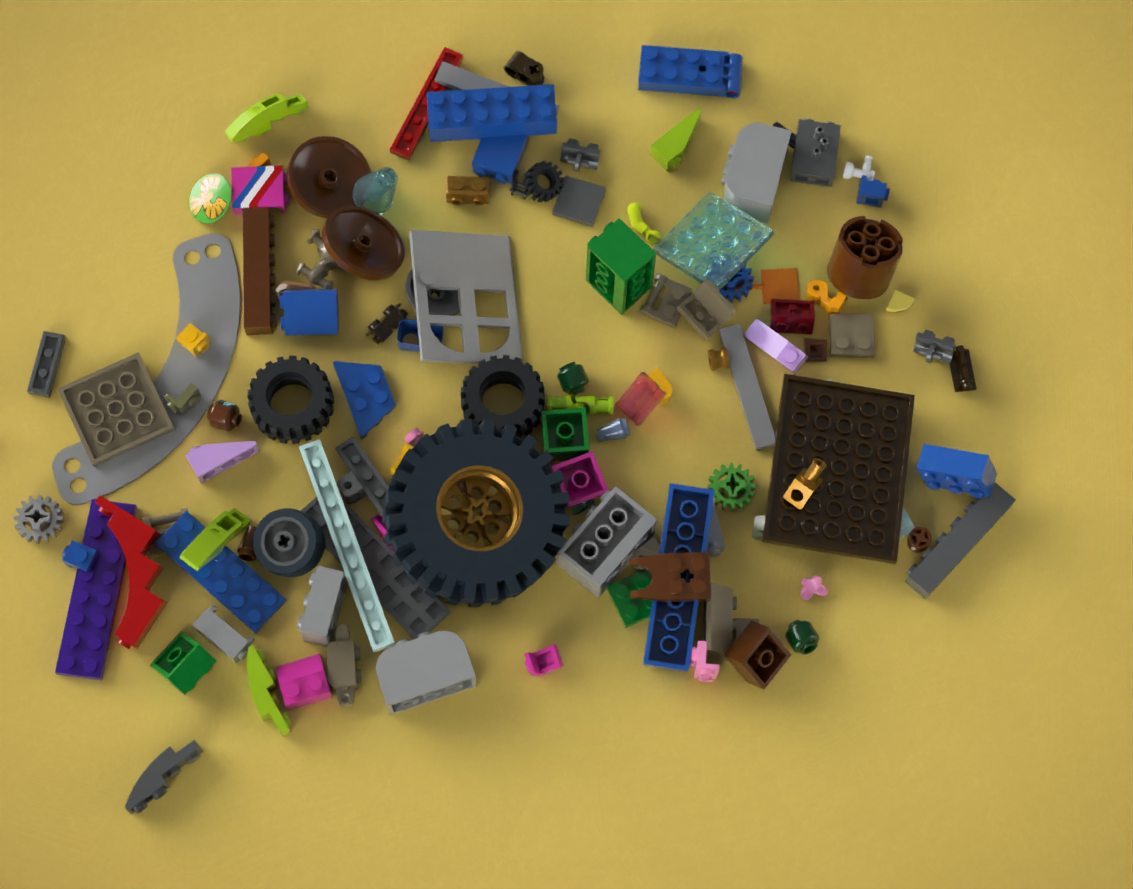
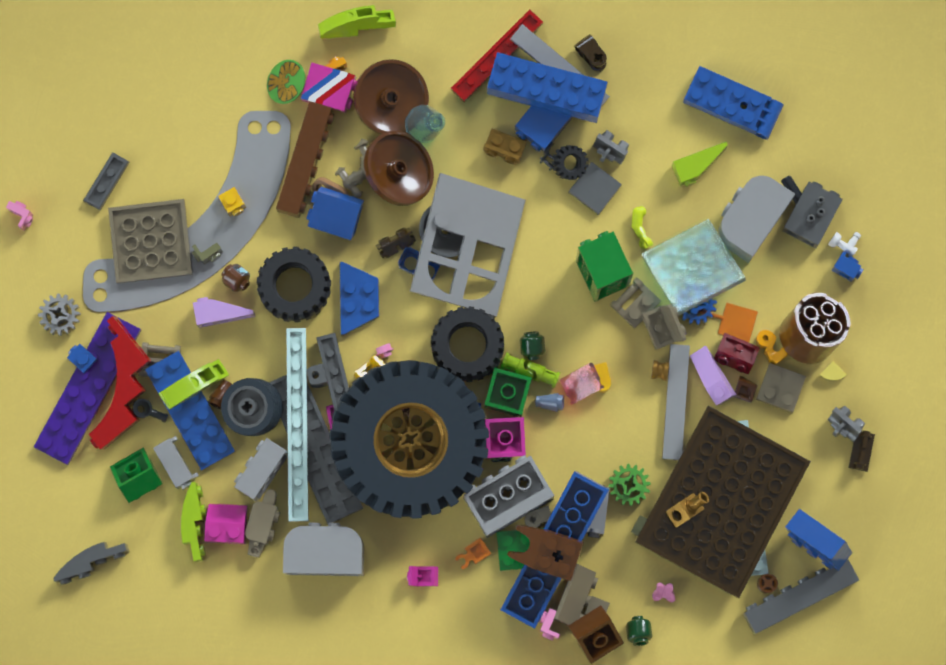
camera: 25 degrees right, 10 degrees up
(172, 588) = (148, 411): none -> black bar
(592, 616) = (475, 551): none -> orange plate

